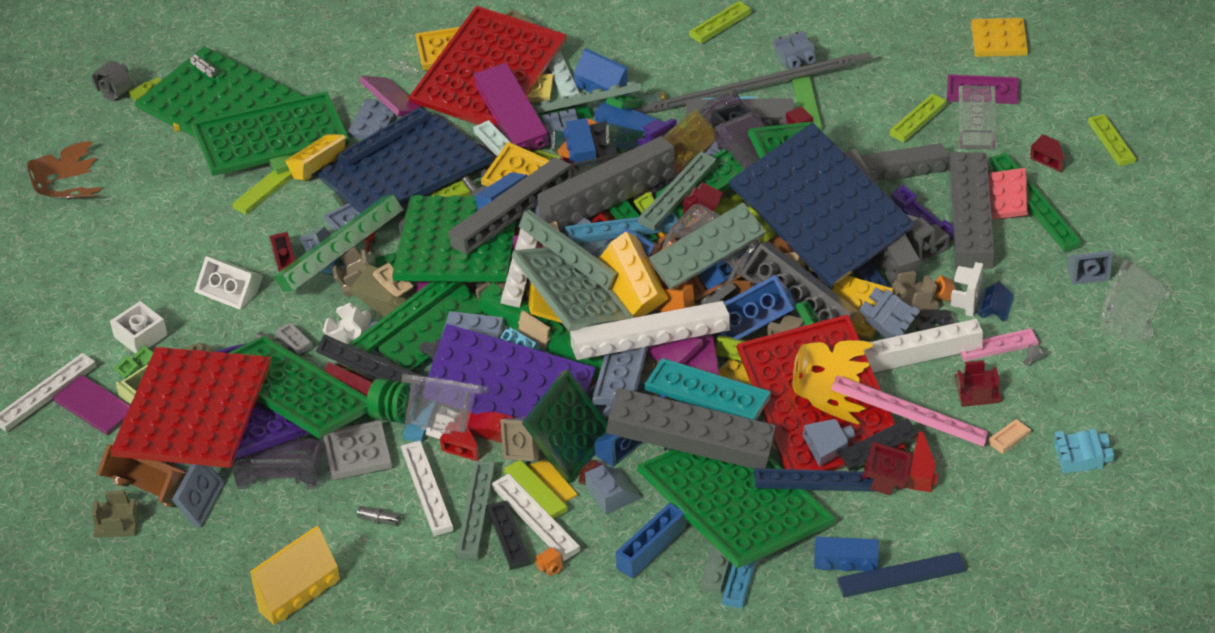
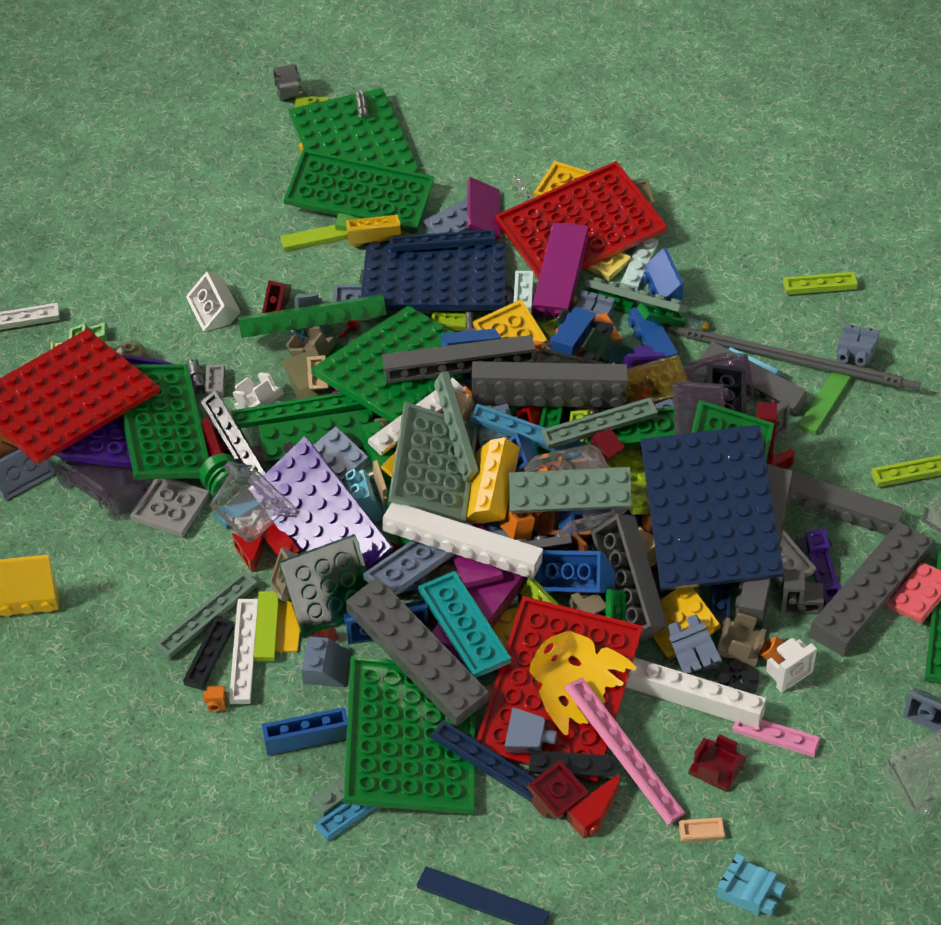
camera: 35 degrees right, 5 degrees up
(65, 168) = (178, 129): dark orange piece -> none
(93, 405) = (26, 343): magenta tile -> none
(138, 327) = (112, 304): white brick -> none
(378, 515) = (132, 573): flat silver pin -> none
(427, 488) = (188, 572): white plate -> none
(846, 554) = (451, 850): blue brick -> none
(996, 300) = (812, 692): clear blue panel -> none
(1033, 354) = (797, 764): dark grey rock -> none

